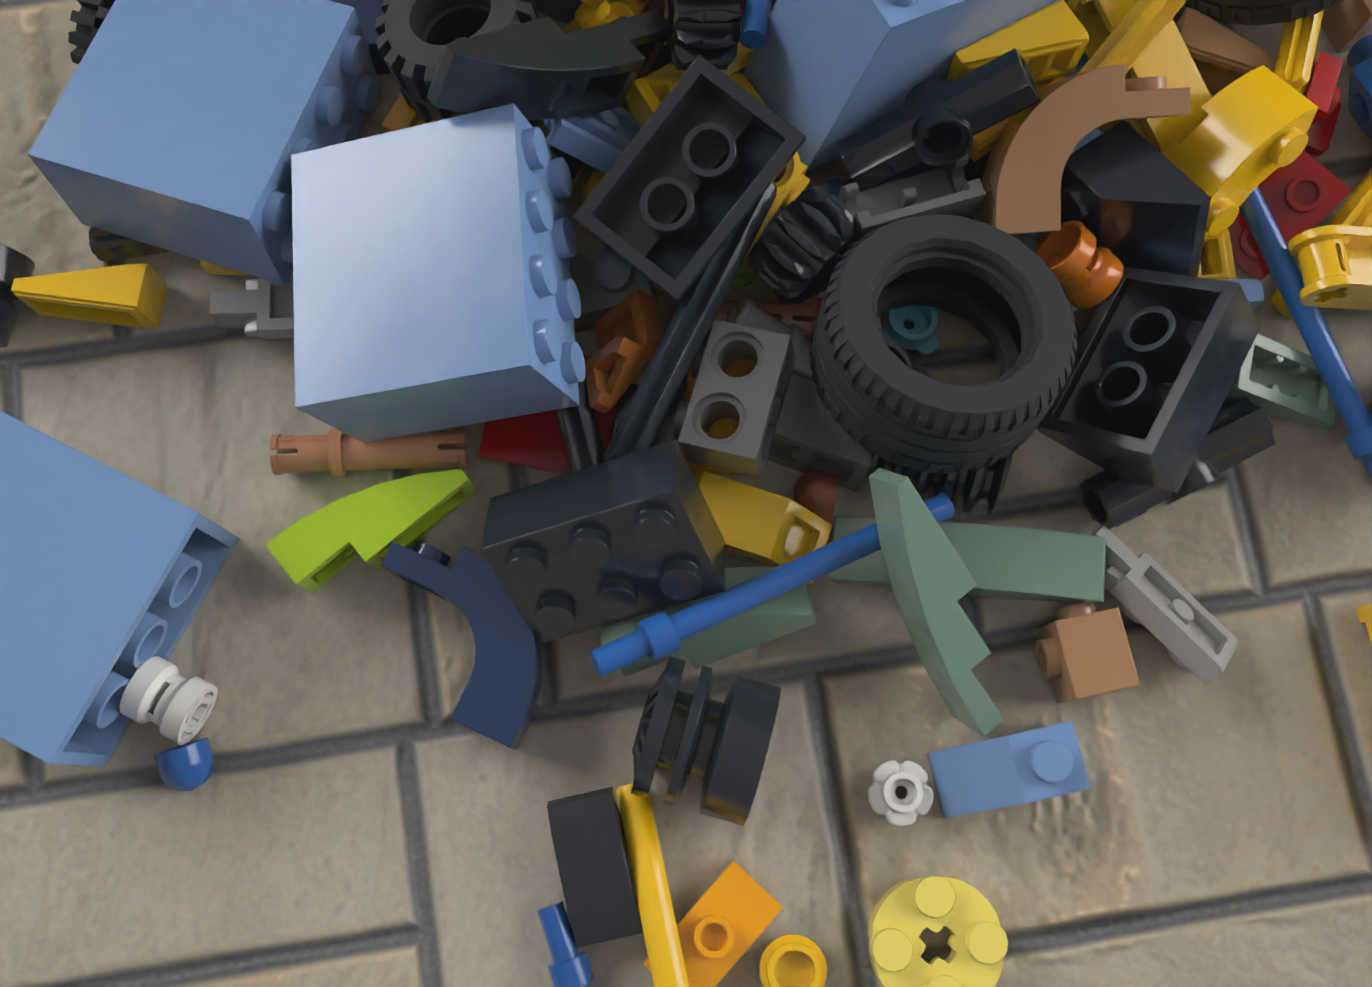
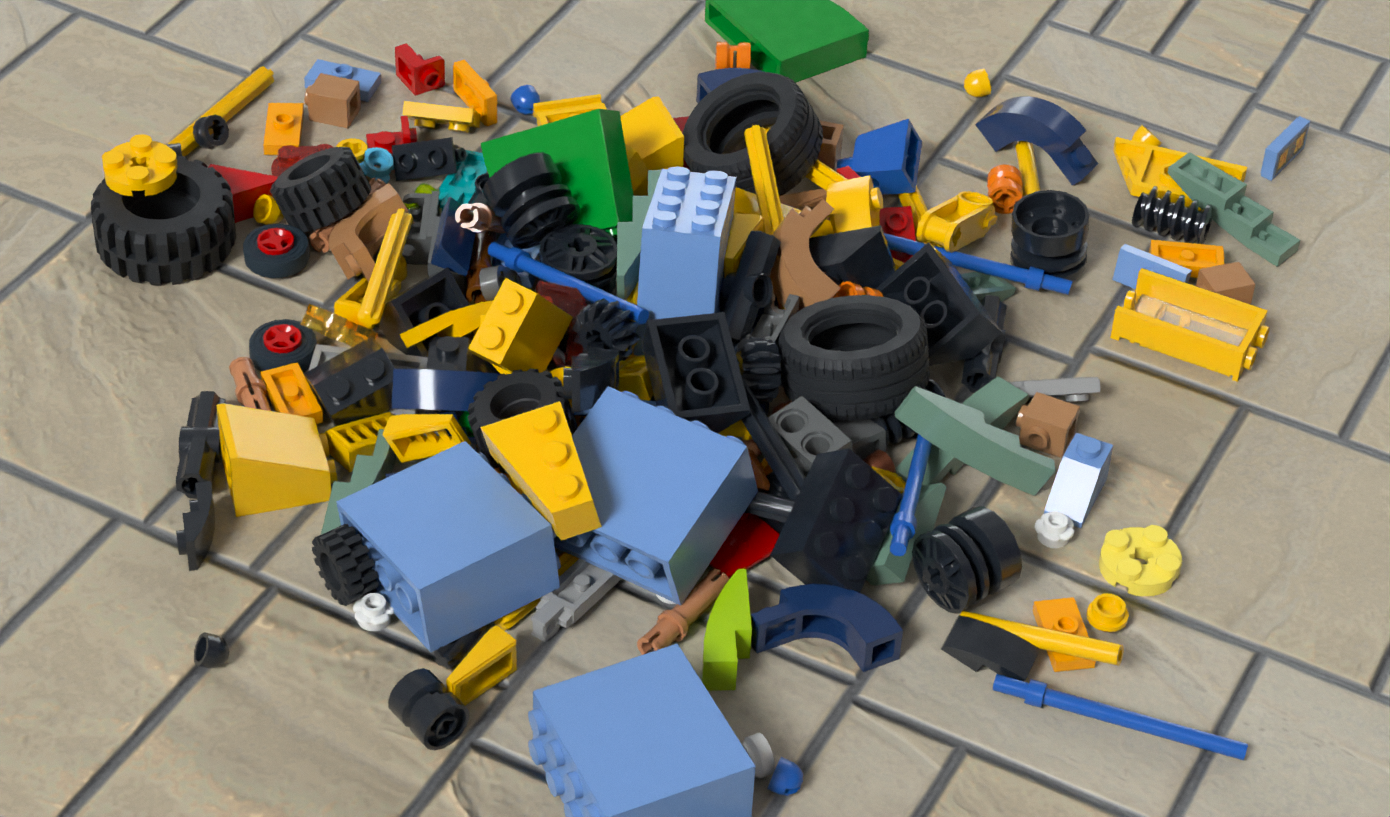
camera: 50 degrees left, 35 degrees down
(306, 147) = (546, 466): none -> yellow wedge

